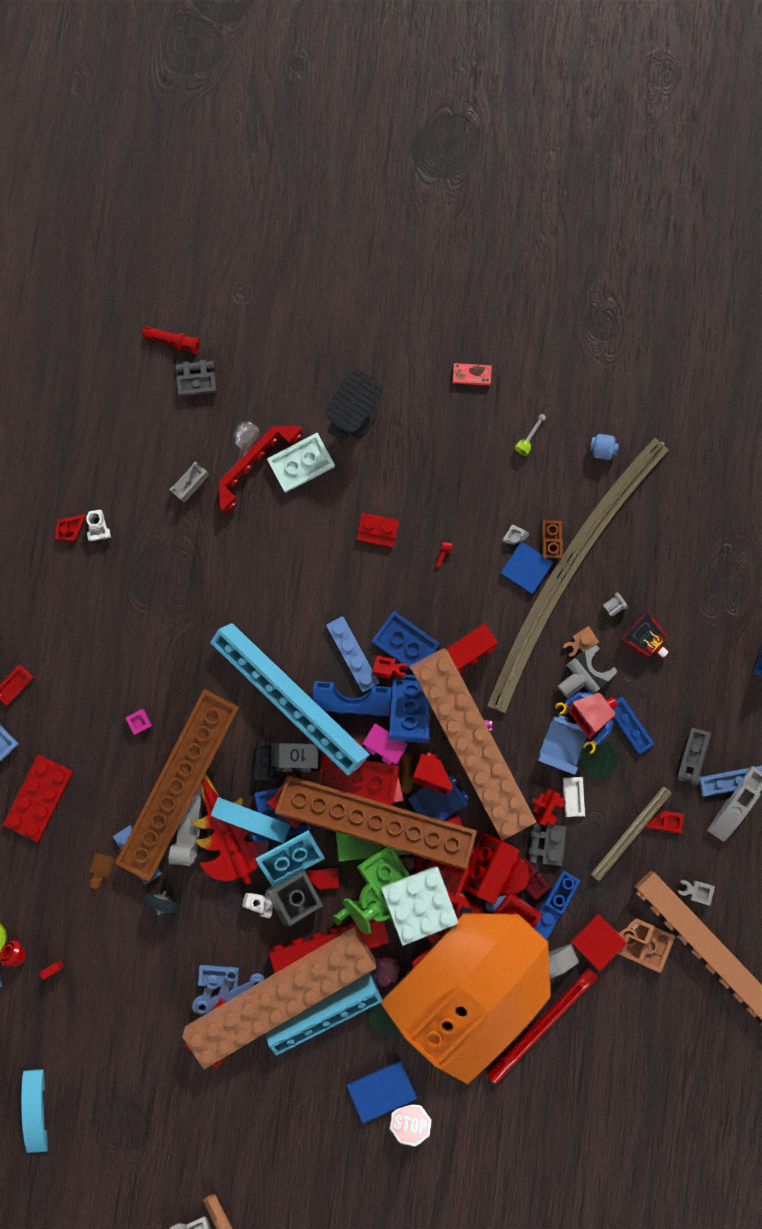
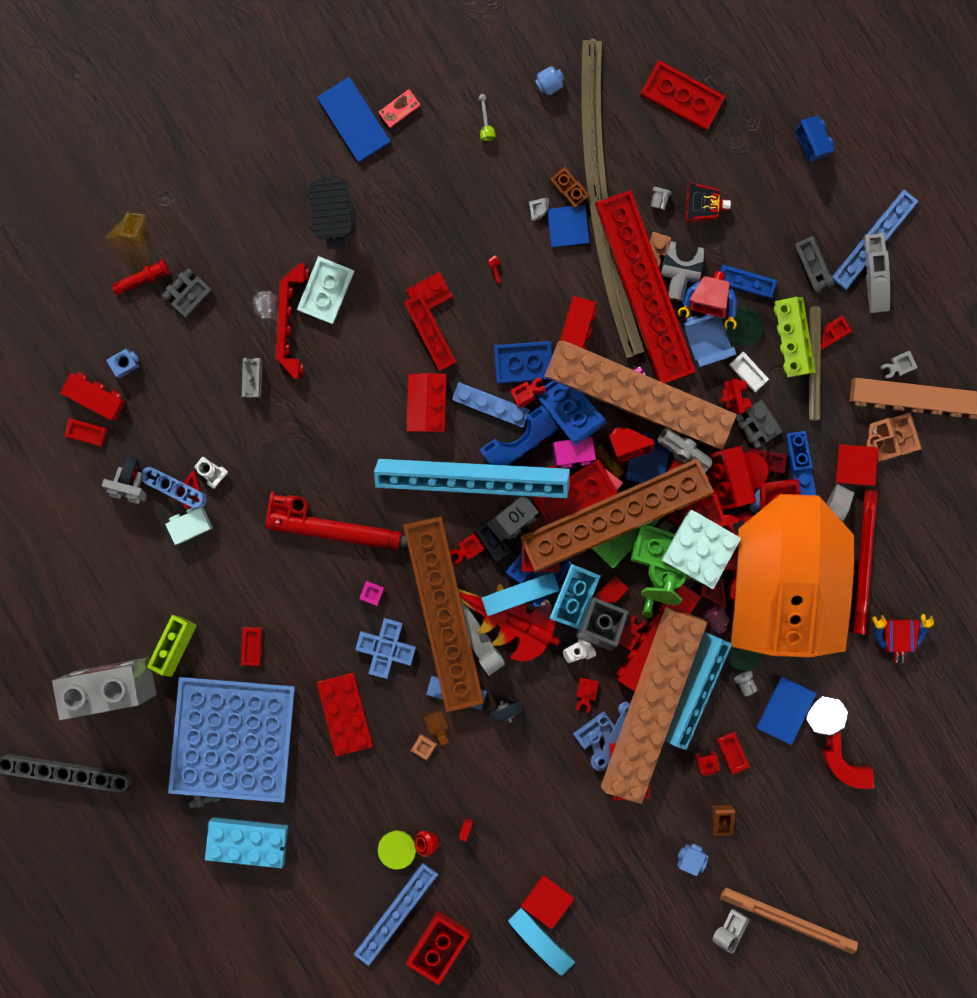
camera: 40 degrees left, 5 degrees up
(27, 480) = (126, 482): none -> light grey plate
(31, 418) = (85, 432): none -> red tile
(45, 553) = (189, 525): none -> light aqua brick
(57, 514) = (173, 488): none -> medium blue beam
(59, 396) = (93, 396): none -> red brick
(66, 1083) = (547, 902): none -> red tile
(76, 876) = (423, 747): none -> nougat tile
(97, 385) = (118, 370): none -> medium blue brick
(112, 773) = (385, 648): none -> medium blue plate
(124, 611) = (288, 519): none -> red piece
(194, 296) = (129, 228): none -> clear yellow slope
(207, 1148) = (692, 859): none -> medium blue brick
(238, 940) = (587, 691): none -> red plate
(243, 750) = (469, 547): none -> red plate
(259, 1137) = (723, 819): none -> dark orange slope
(283, 1082) = (708, 764): none -> red window
(305, 611) = (426, 403): none -> red slope
(308, 924) = (630, 635): none -> red plate
(311, 1089) = (733, 753): none -> red tile
(352, 559) = (429, 332): none -> red plate
(368, 1042) = (746, 683): none -> light grey bush
(392, 1193) = (853, 776): none -> red arch
(403, 951) = (717, 594): none -> red piece
(430, 354) = (353, 119): none -> blue tile
(472, 814) = (683, 448): none -> light grey piece
(523, 1109) = (901, 635): none -> torso
(546, 664) = (645, 287): none -> red plate
(632, 799) = (794, 337): none -> lime brick
(697, 542) = (682, 95): none -> red tile

